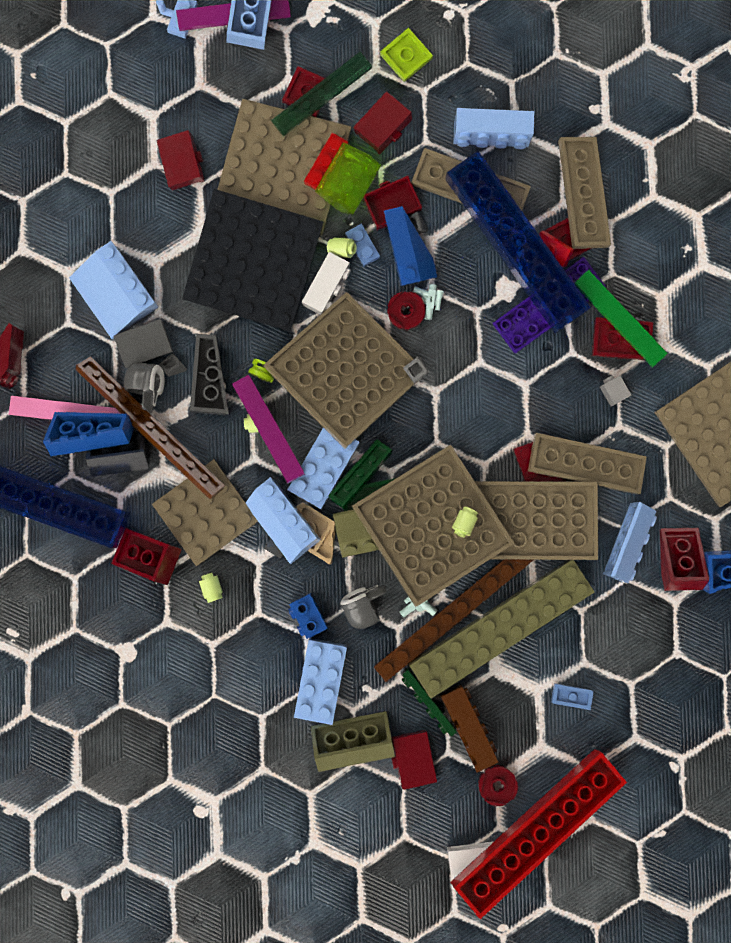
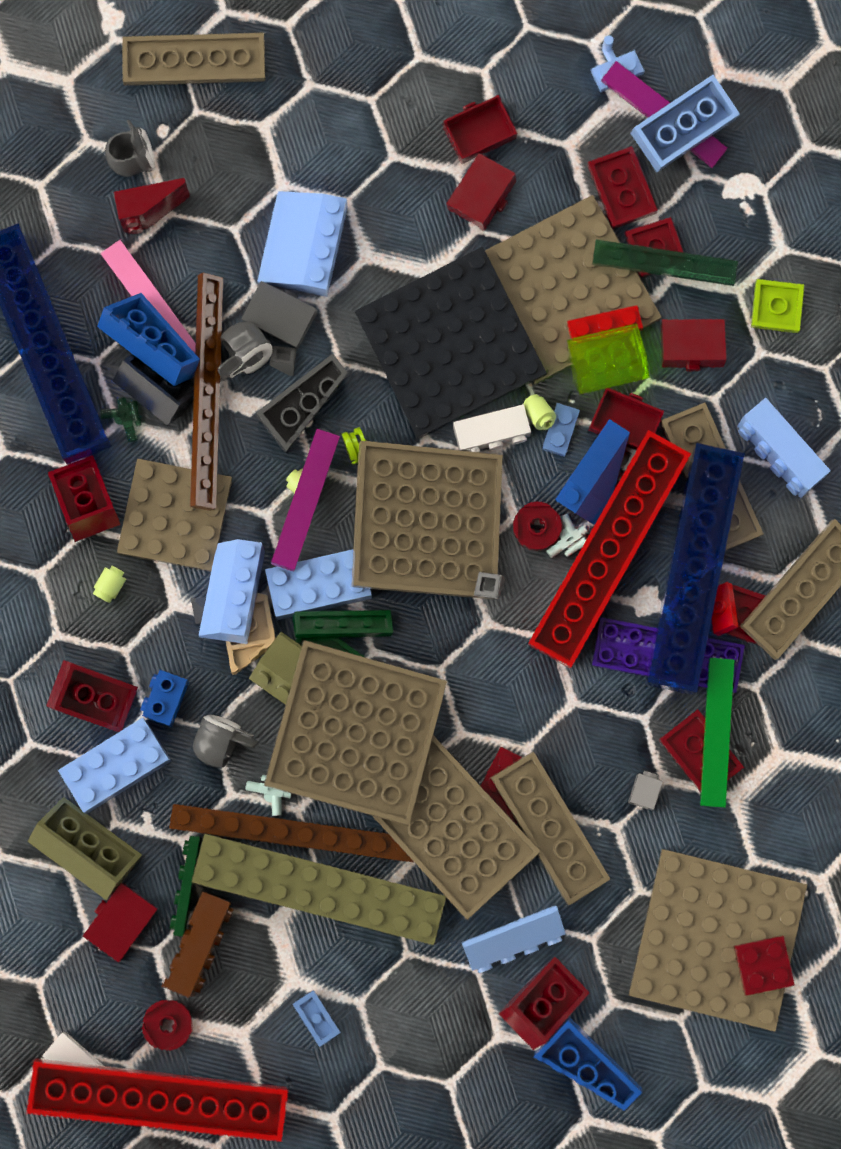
camera: 40 degrees right, 5 degrees down
(119, 487) = (125, 416): none -> clear green piece
(141, 127) = (479, 129): none -> dark red container
(254, 77) = (622, 187): none -> dark red plate
(267, 657) = (91, 696): none -> dark red slope
(459, 280) = (609, 549): none -> red brick
(465, 522) = (385, 758): yellowish green brick -> none

